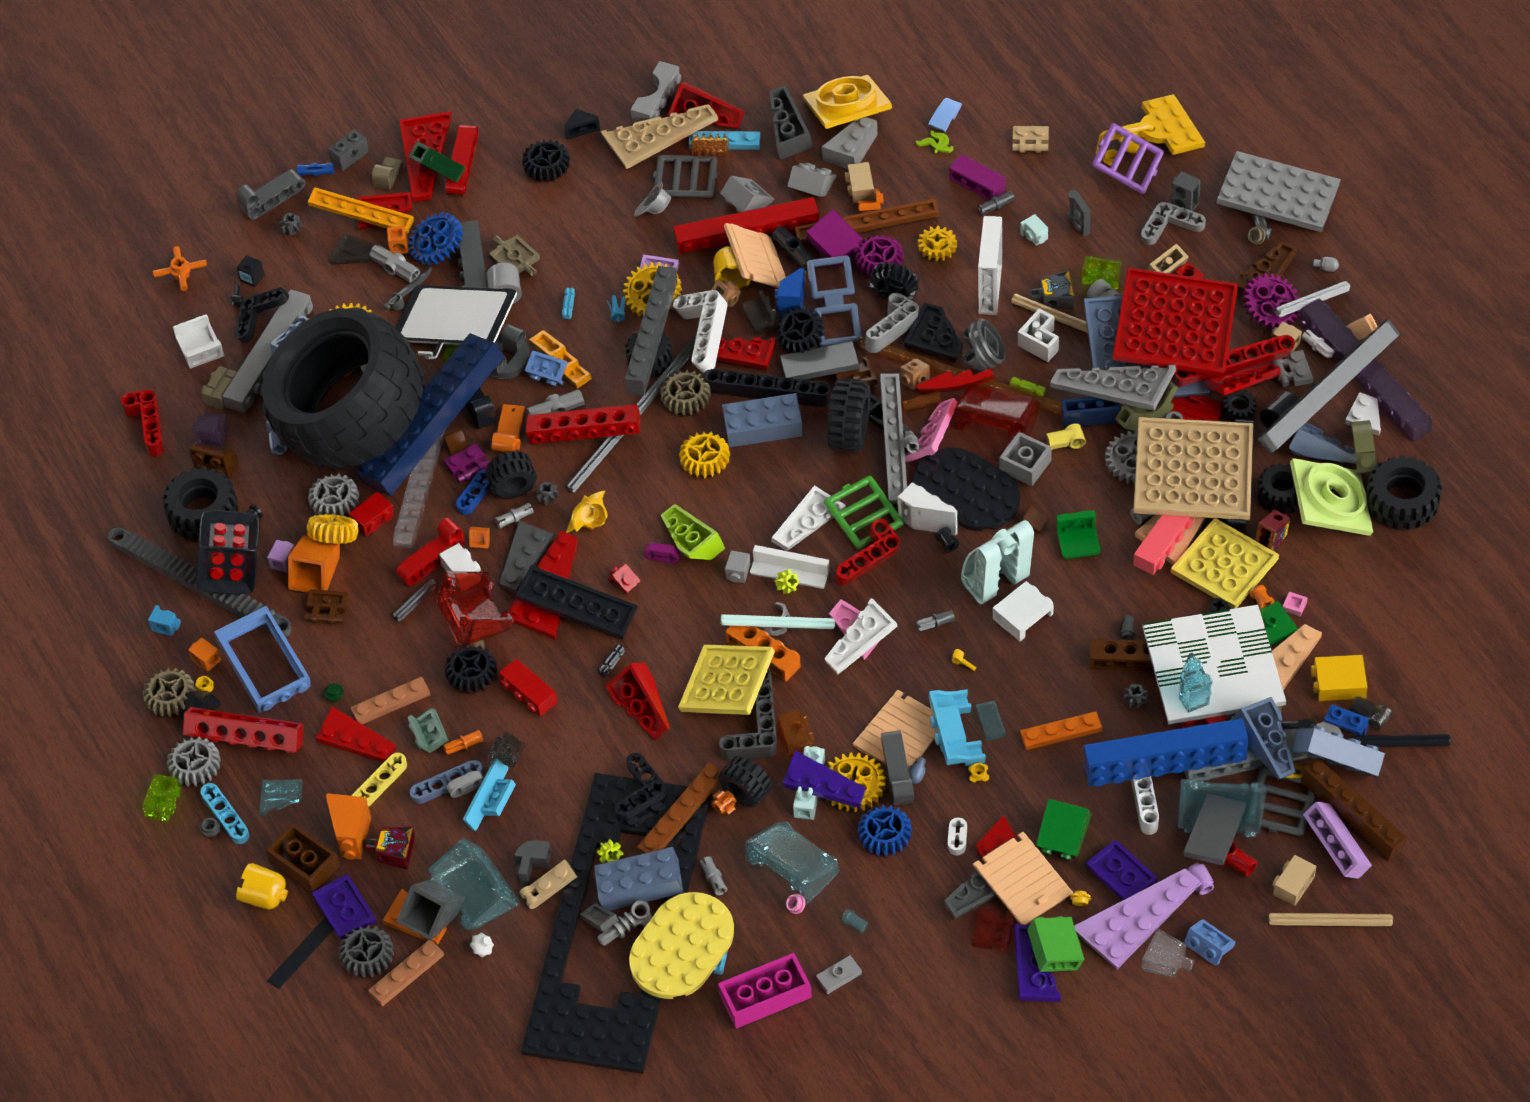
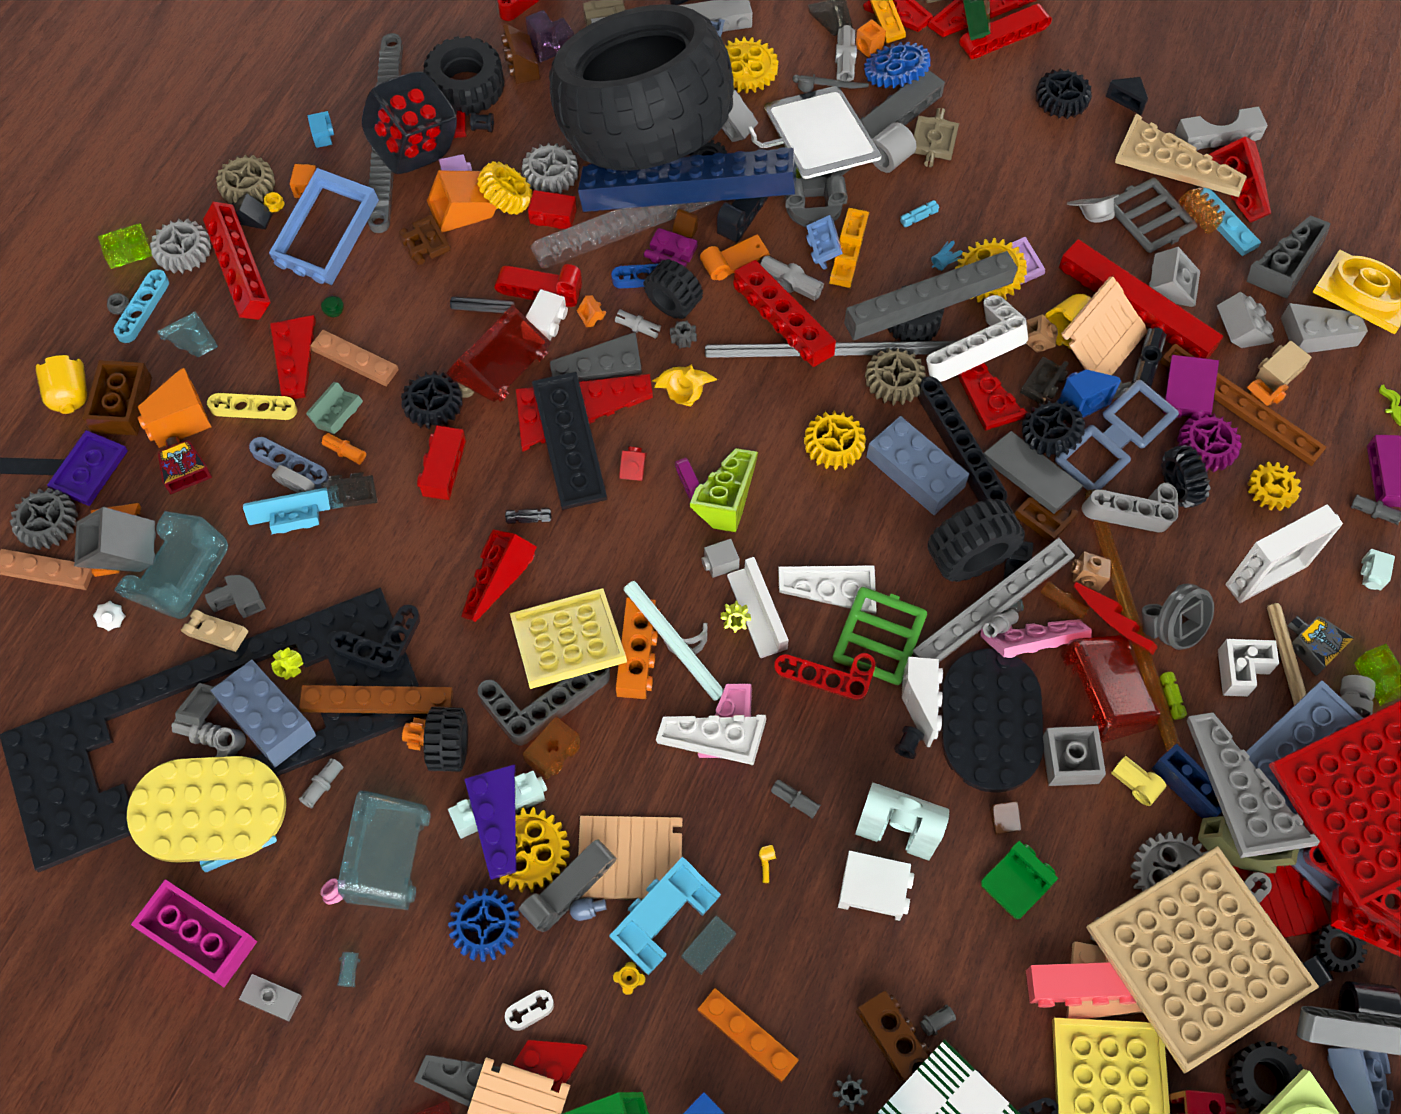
camera: 50 degrees right, 10 degrees up
(934, 334) = (1159, 557): black plate -> none

